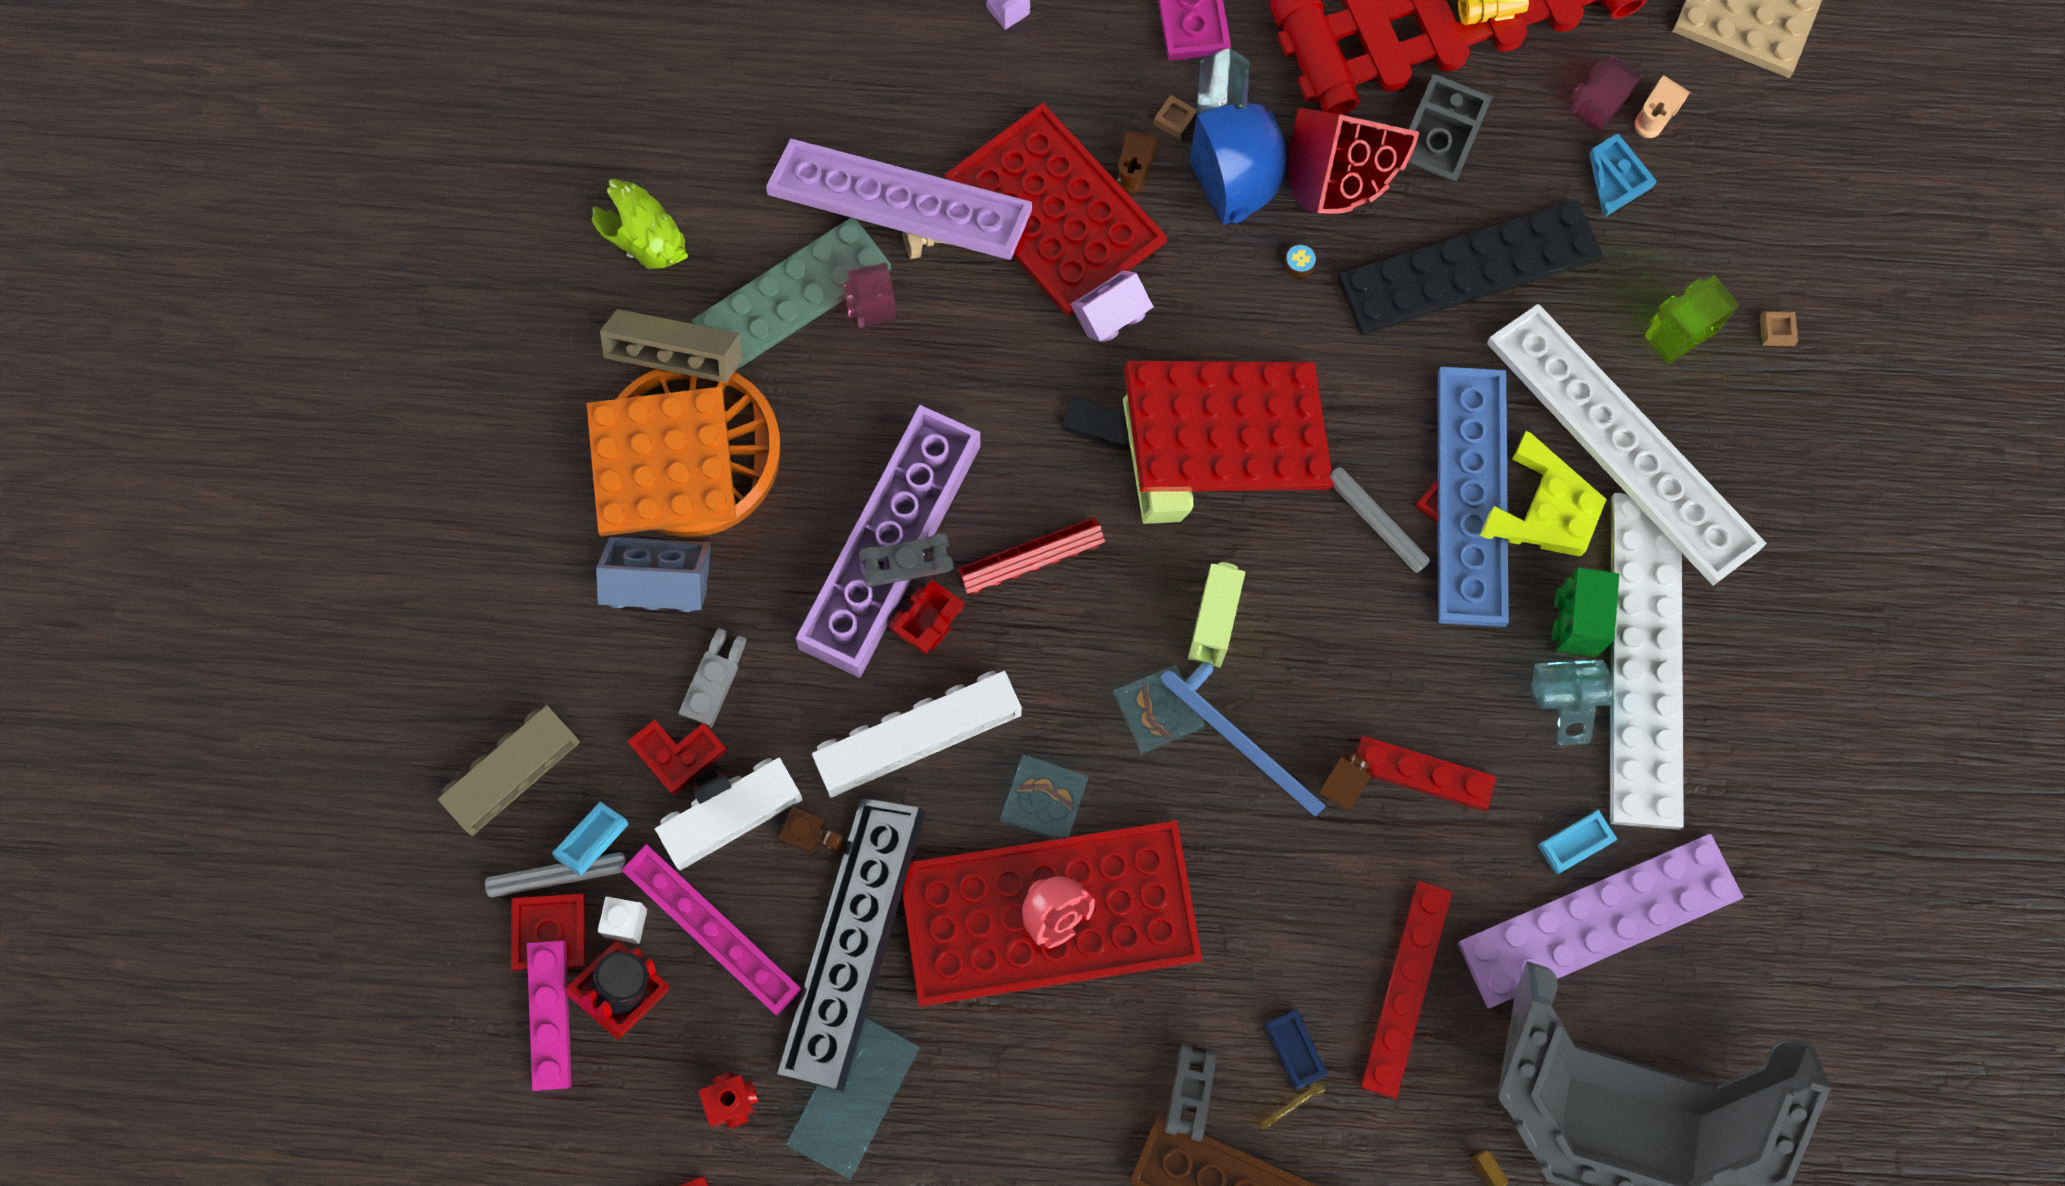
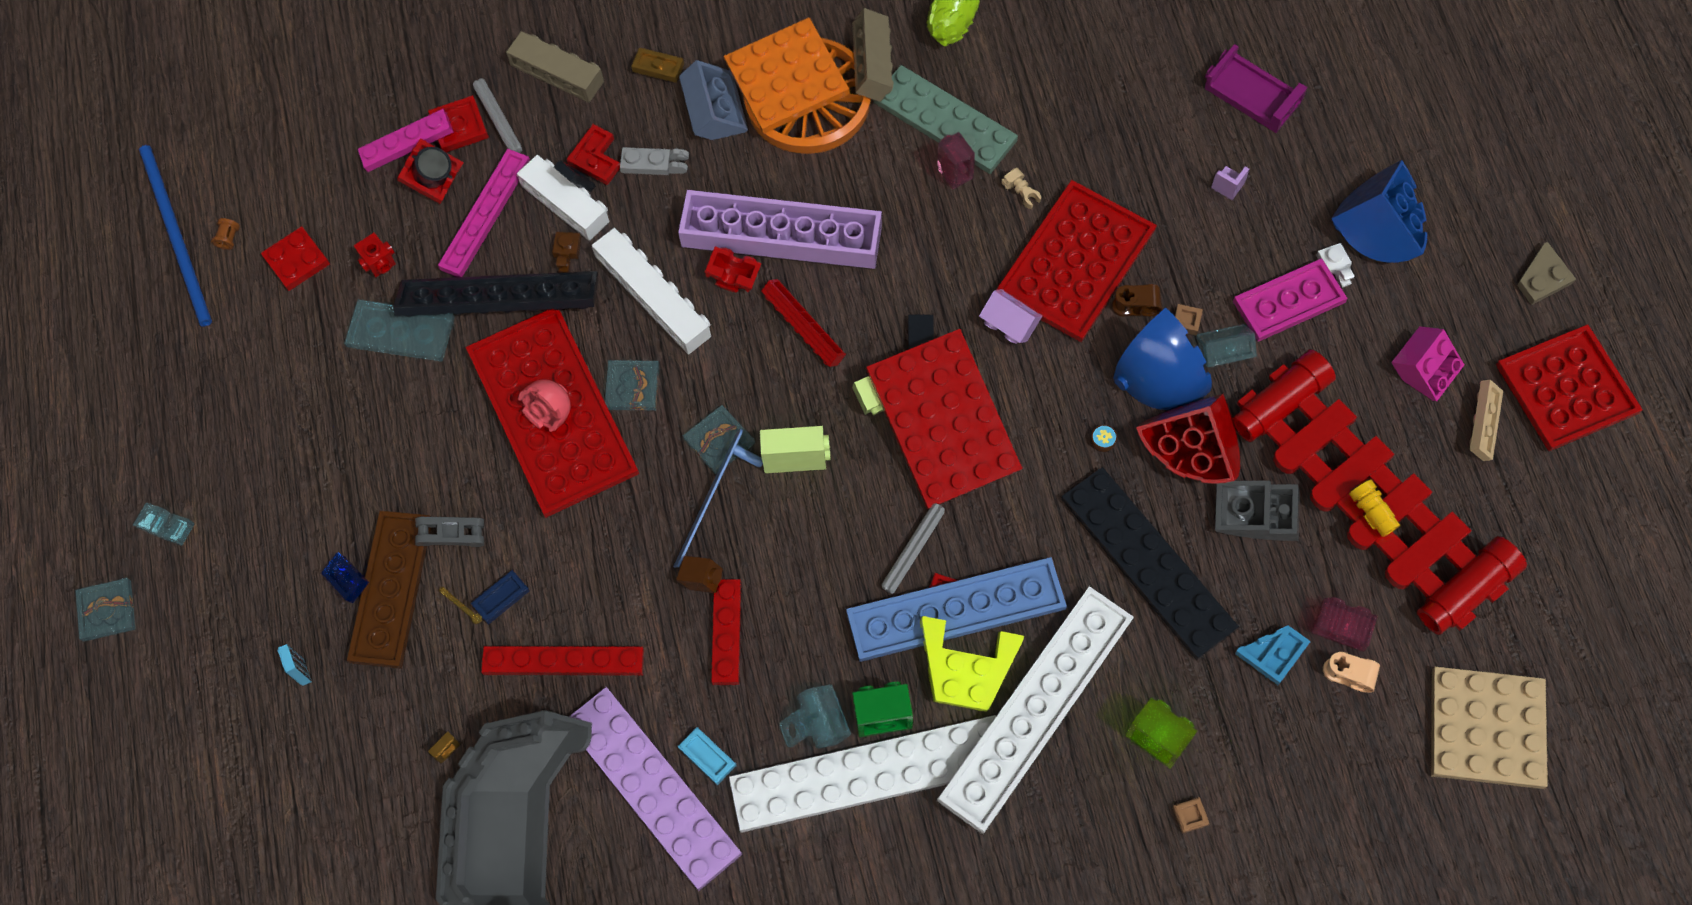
camera: 80 degrees right, 5 degrees down
(563, 630) = (657, 65): none -> pearl gold plate
(590, 838) = (524, 125): medium azure tile -> none
(622, 920) = (475, 159): white brick -> none
(900, 198) = (1038, 157): lavender plate -> none
(906, 560) = (761, 235): dark grey plate -> none

